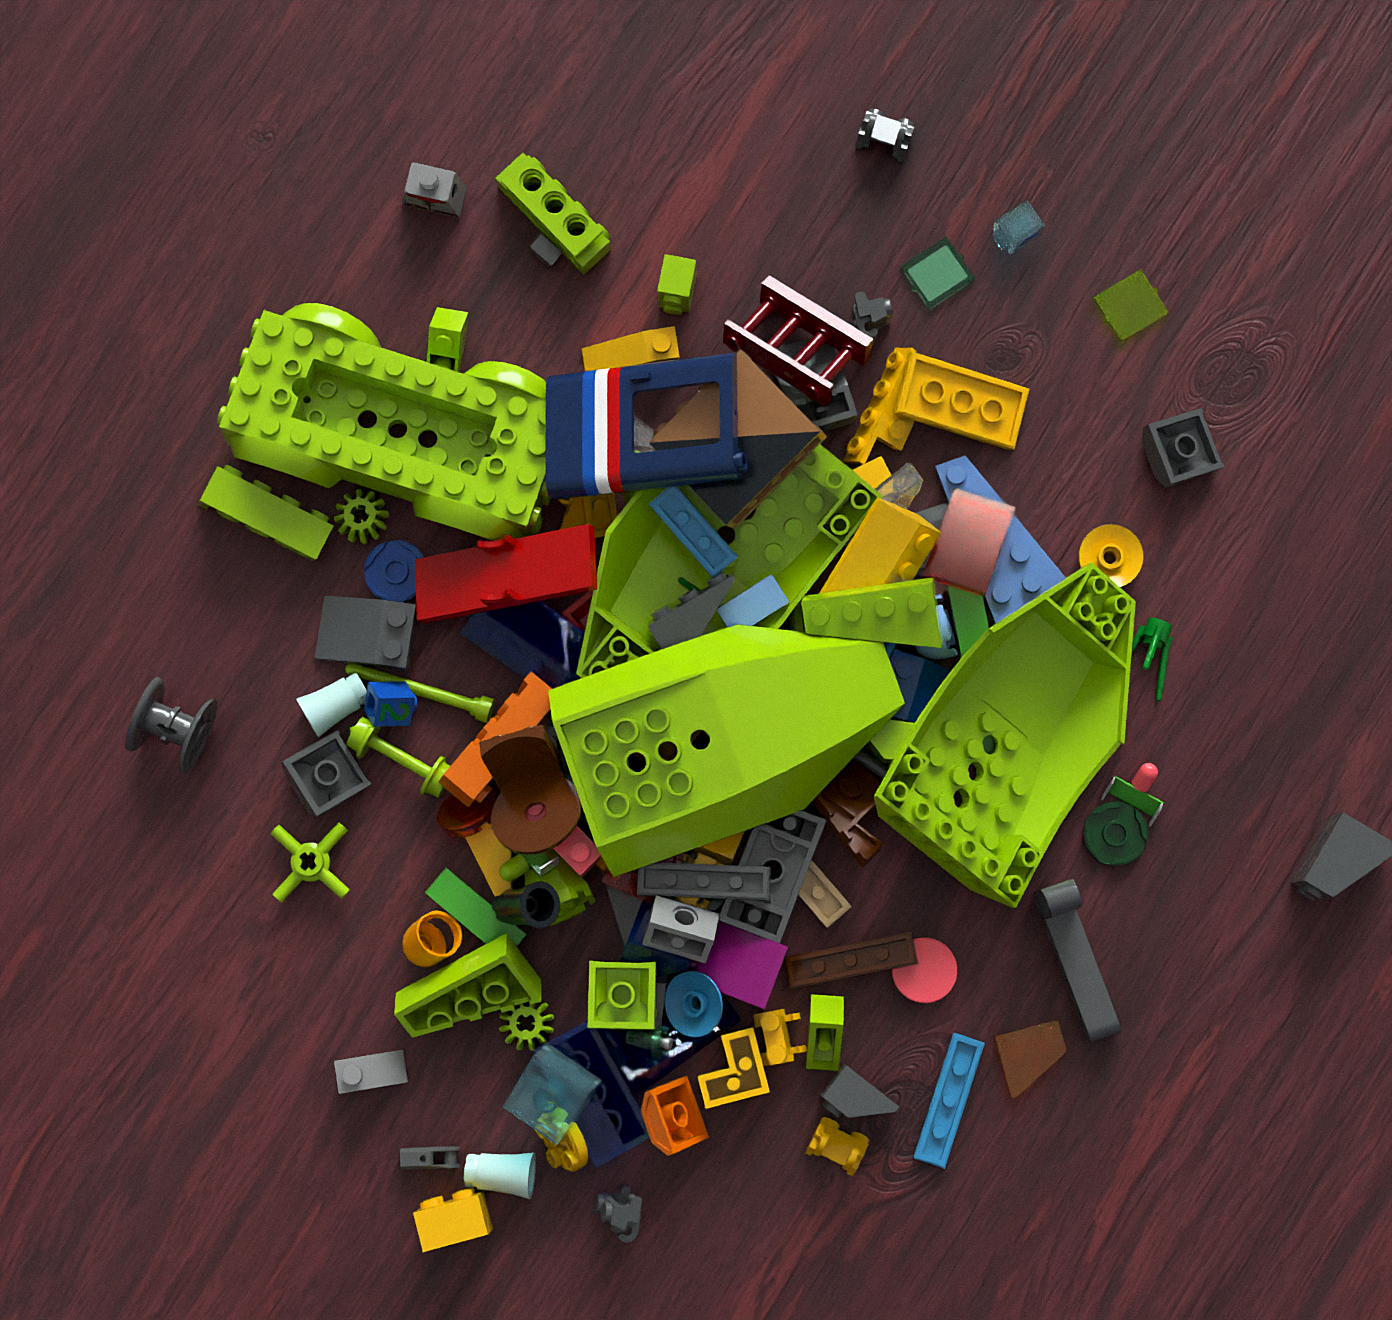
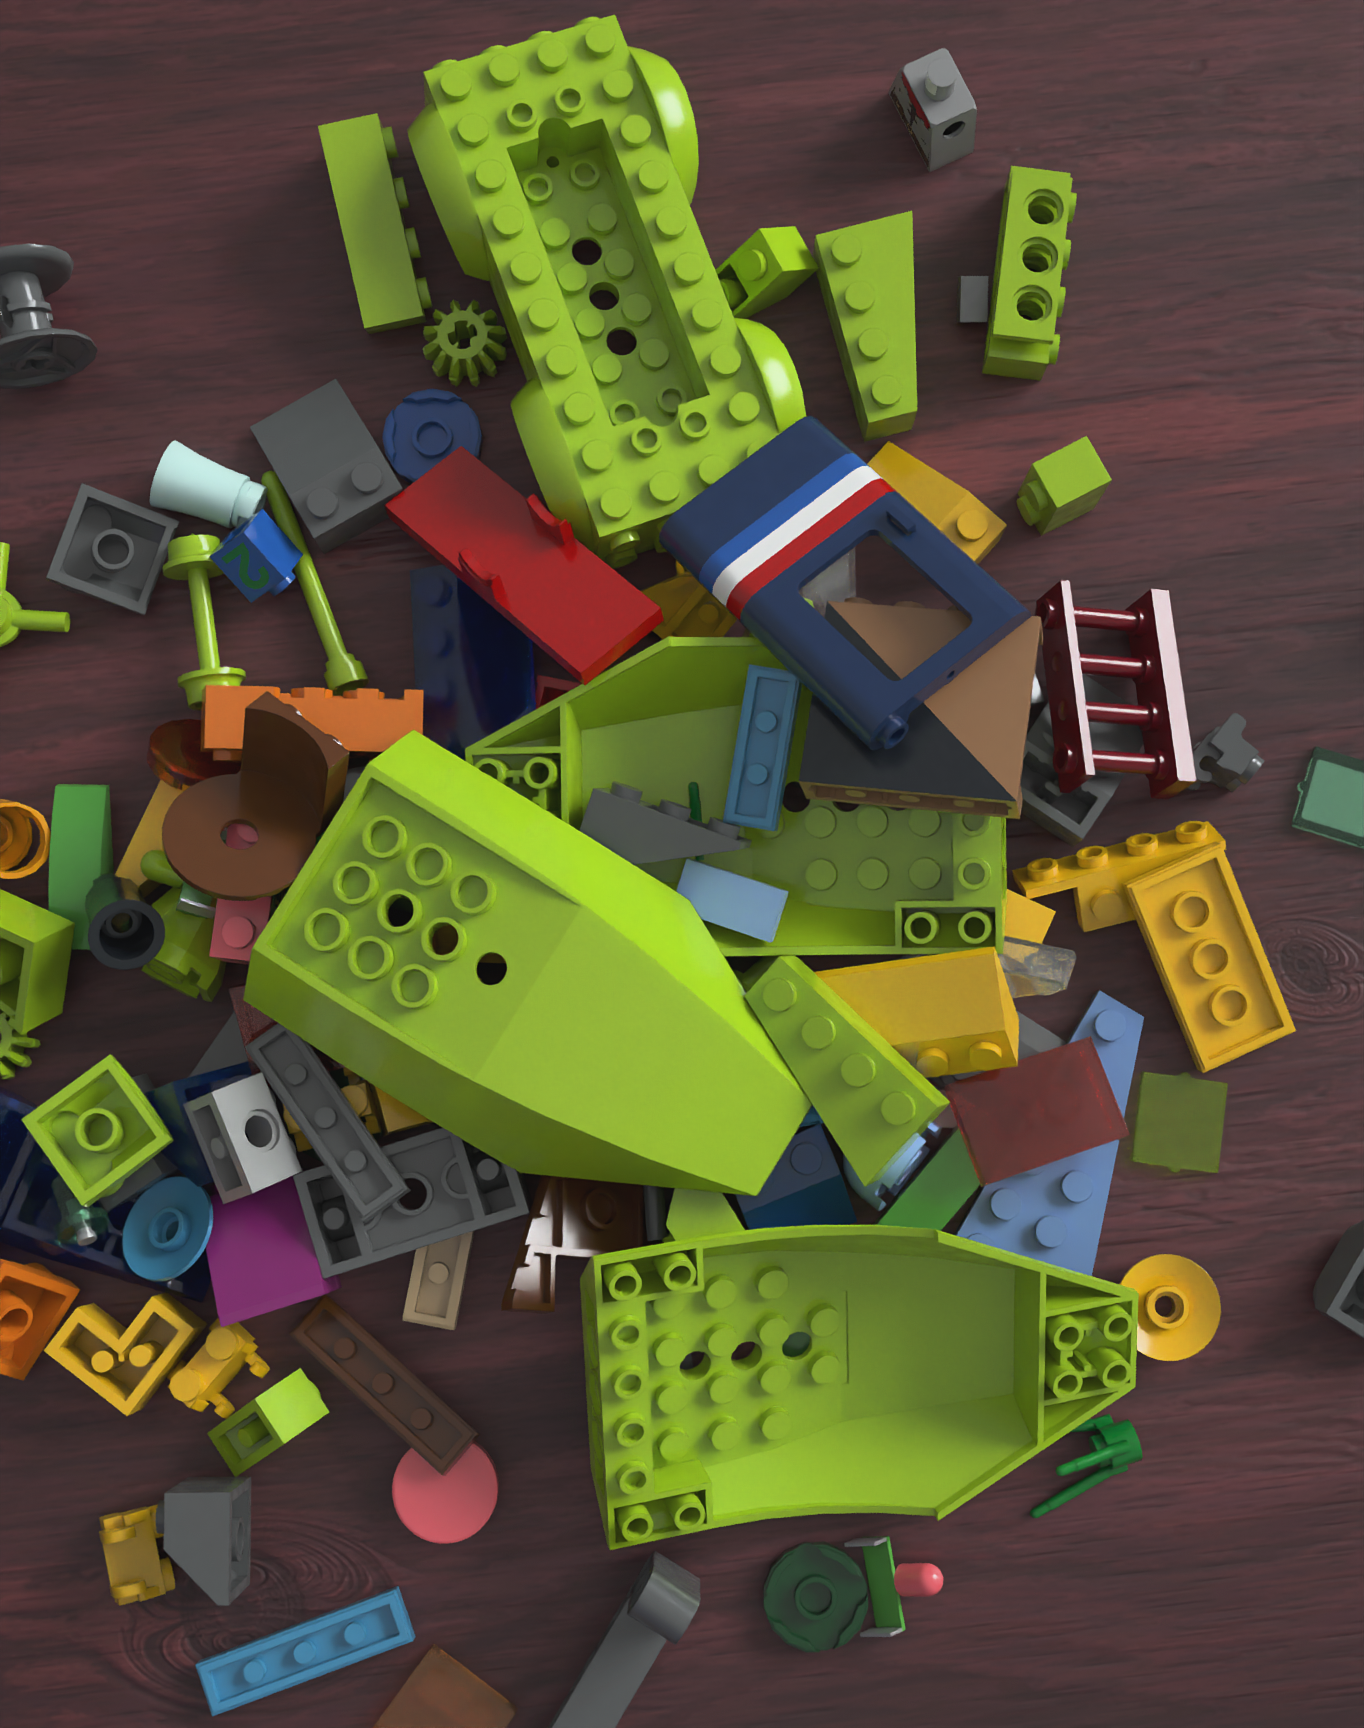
camera: 50 degrees right, 0 degrees up
(512, 304) = (871, 309): none -> lime wedge
(1028, 479) = (1179, 1122): none -> clear neon green piece

